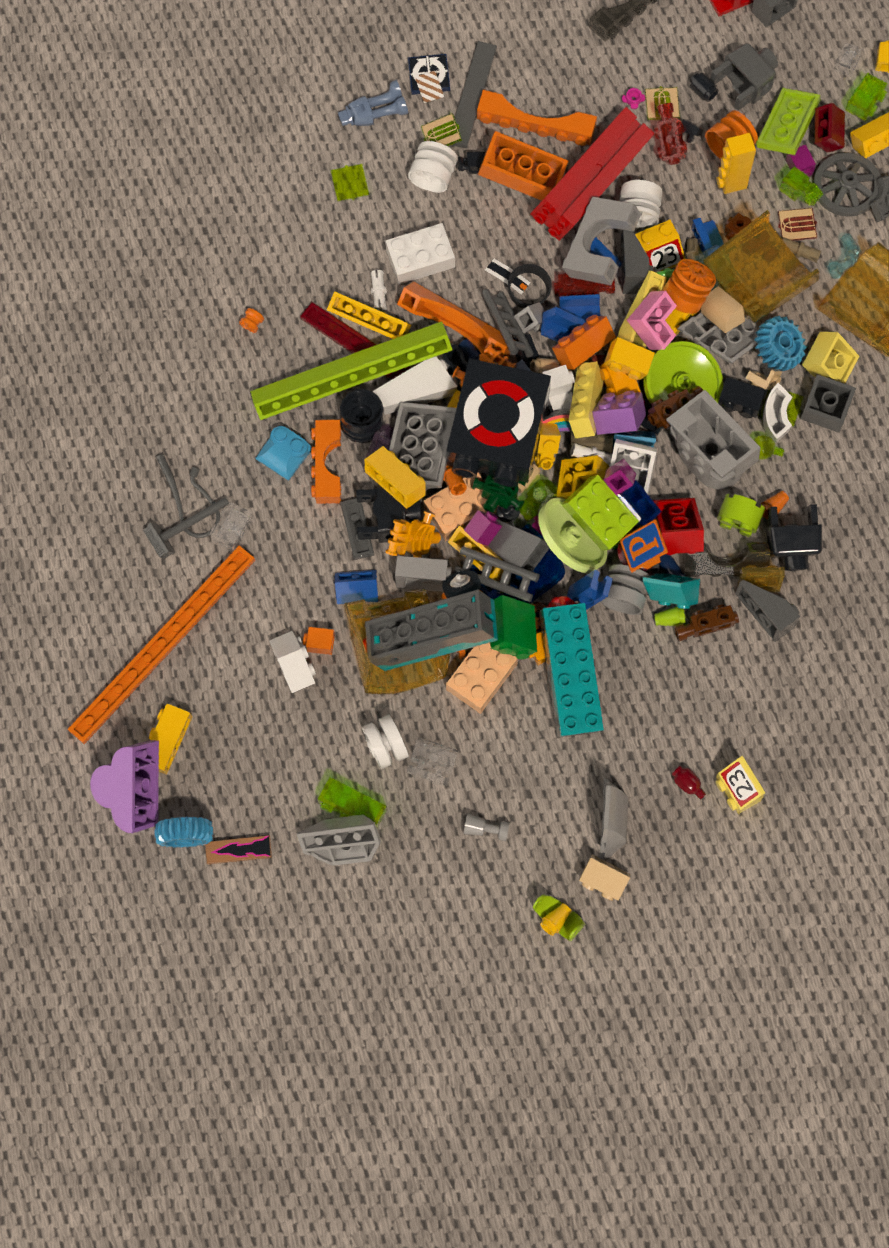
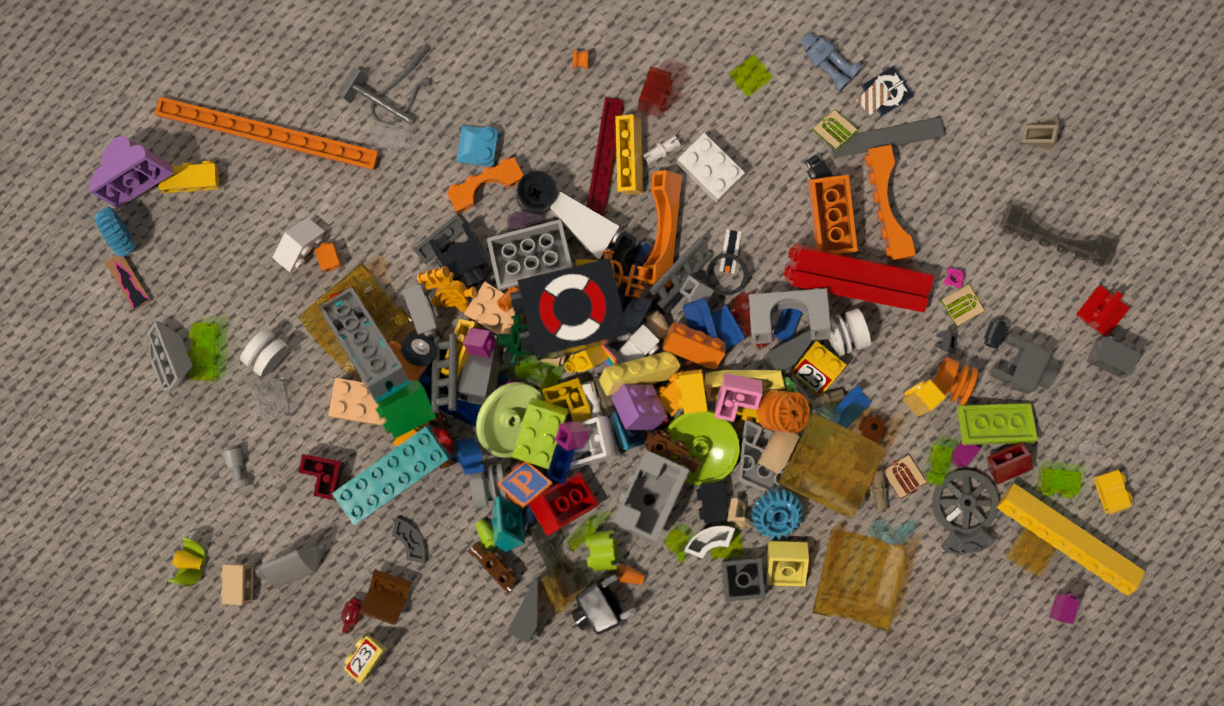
camera: 60 degrees right, 10 degrees up
(321, 265) = (654, 92): none -> clear red brick
(351, 370) = (571, 165): lime brick -> none
(356, 586) = (390, 263): blue panel -> none
(395, 477) = (487, 248): yellow brick -> none
(433, 166) = (795, 138): white wheel -> none
(533, 738) = (327, 473): none -> dark red brick
(641, 692) = (411, 540): none -> dark grey tile
(667, 141) = (926, 329): clear red brick -> none
(687, 737) = (386, 597): none -> reddish brown bracket
(715, 527) = (581, 534): none -> clear neon green piece

